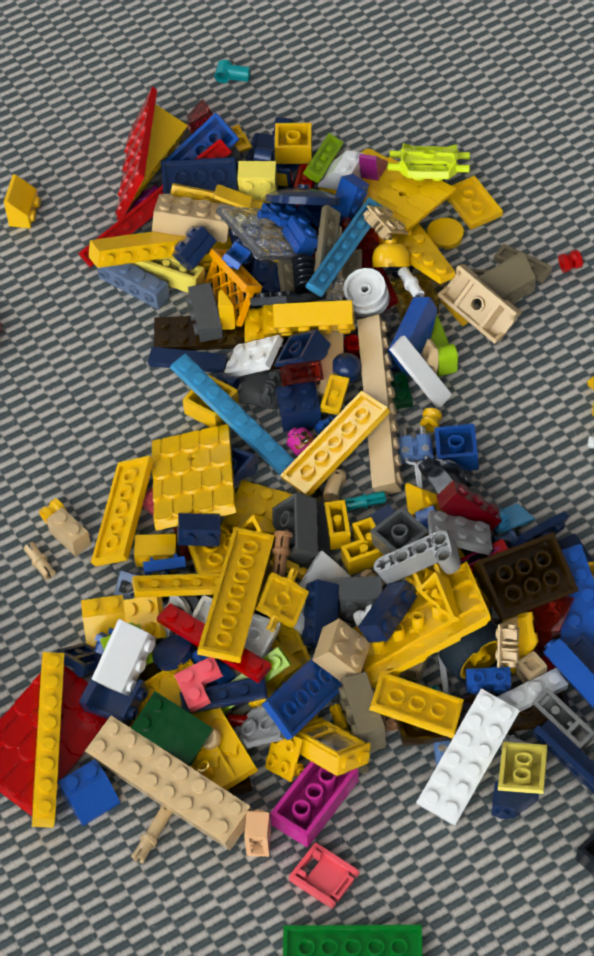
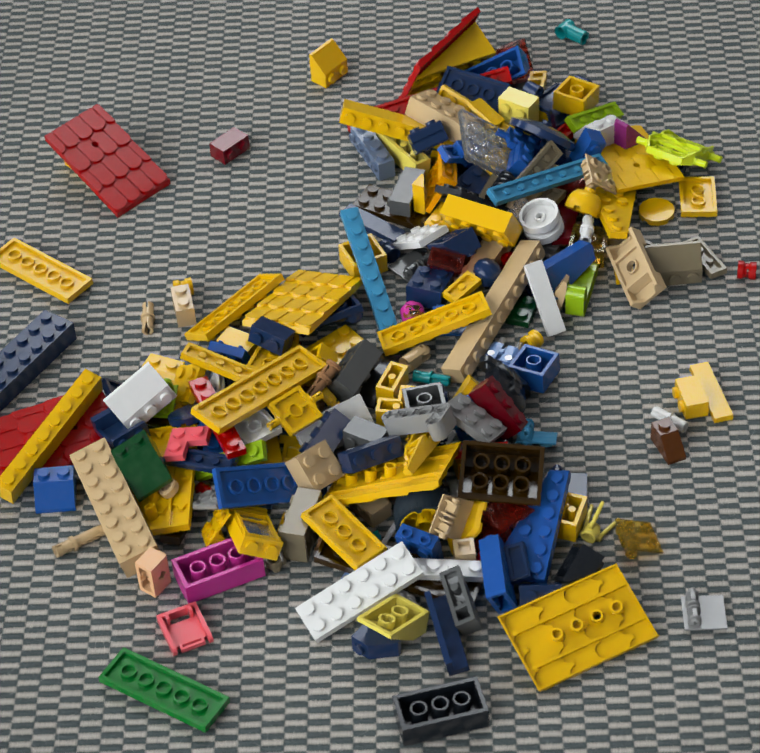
camera: 30 degrees right, 10 degrees down
(554, 524) = (557, 453): dark blue wing -> none

